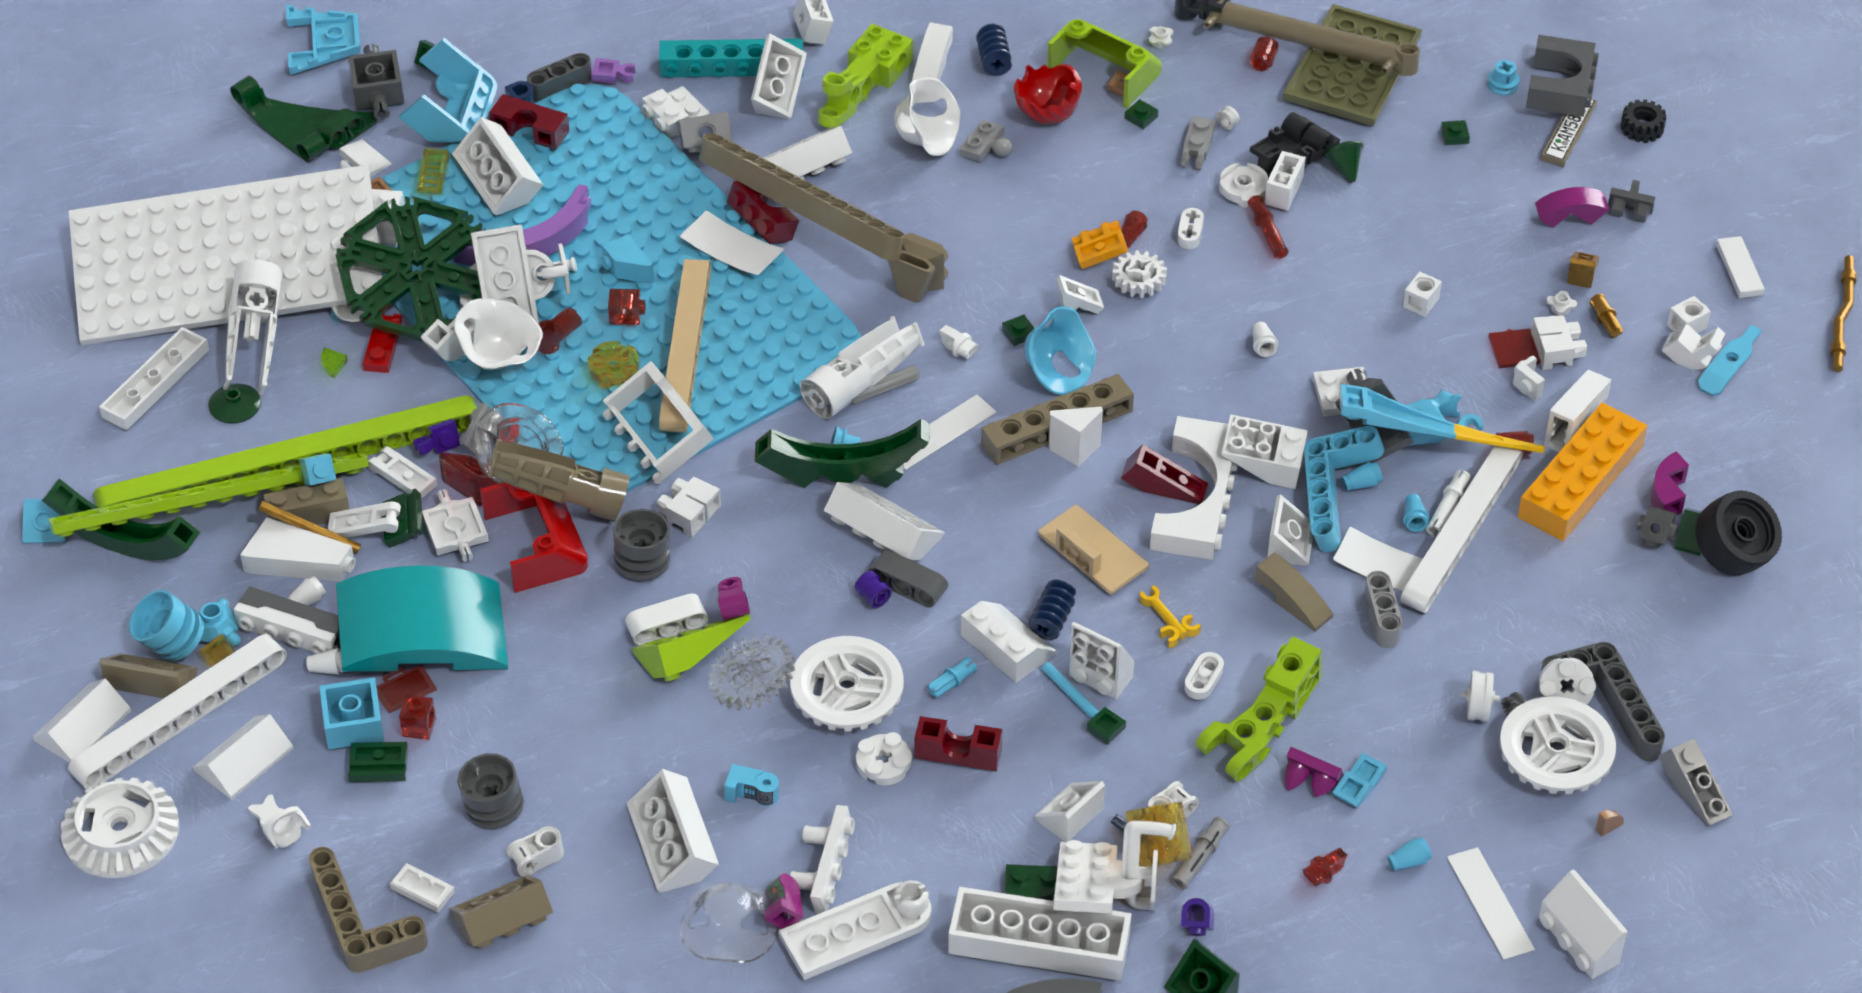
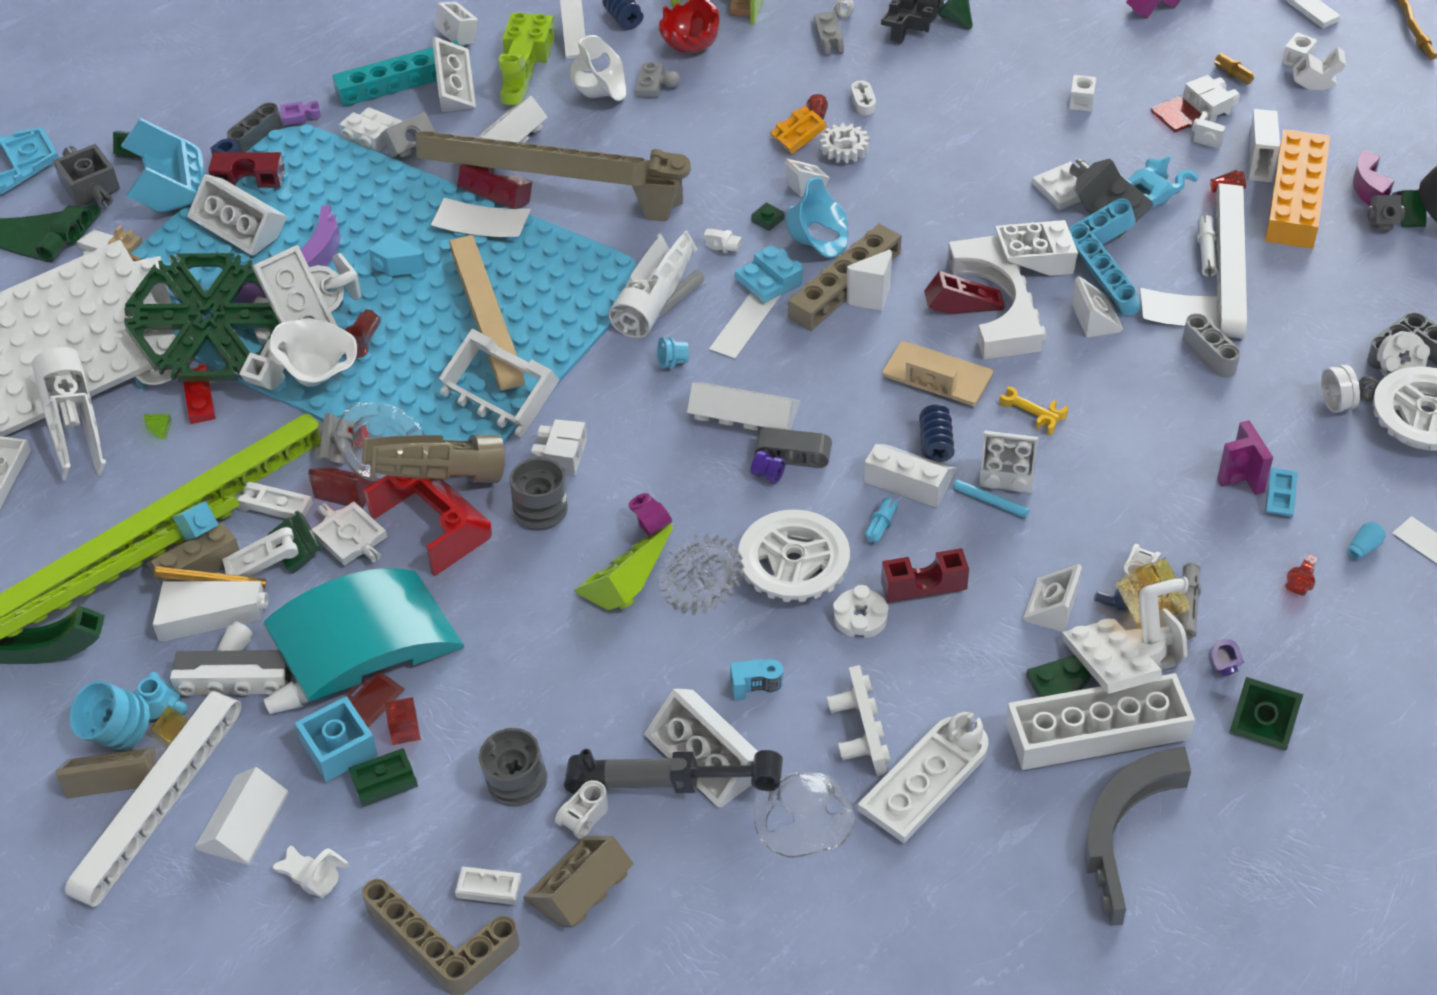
camera: 20 degrees left, 0 degrees up
(83, 720) = (59, 839): white slope -> none
(125, 852) = (137, 963): white gear -> none
(235, 404) = (78, 491): dark green dish -> none
(382, 162) = (128, 239): none -> tan tile
(435, 156) = (175, 221): clear yellow slope -> none
(441, 438) = (297, 459): dark purple plate -> none
(613, 375) = (428, 358): clear yellow plate -> none
(625, 307) = (414, 295): clear red brick -> none
(631, 845) = (676, 772): none -> black piece
(666, 619) = (593, 553): white beam -> none
(783, 900) = (846, 774): magenta leg -> none
(845, 463) = (713, 354): dark green arch -> none
(939, 250) = (677, 165): none -> dark tan plate
(985, 393) = (770, 273): none -> medium azure plate
(1106, 725) = (1040, 517): dark green plate -> none
(1141, 114) = (770, 24): dark green plate -> none
(1203, 678) = (1097, 447): white plate -> none
(1238, 193) = (877, 54): white plate -> none
(1264, 219) = (920, 74): clear red pin -> none
(1264, 340) = (978, 164): white cone -> none
(1284, 180) = (921, 39): white brick -> none
(1284, 694) = (1177, 438): lime brick -> none
(1293, 591) = (1129, 354): dark tan slope -> none
(1301, 764) = (1228, 494): magenta tile -> none
(1332, 733) = (1246, 460): none -> magenta bracket
(1363, 477) = (1127, 245): medium azure cone -> none
(1387, 413) = (1128, 186): medium azure plate -> none
(1415, 514) = (1187, 262): medium azure cone -> none
(1561, 303) = (1193, 69): white plate -> none
(1582, 269) = (1195, 39): pearl gold slope -> none
(1721, 369) = (1350, 77): medium azure piece -> none

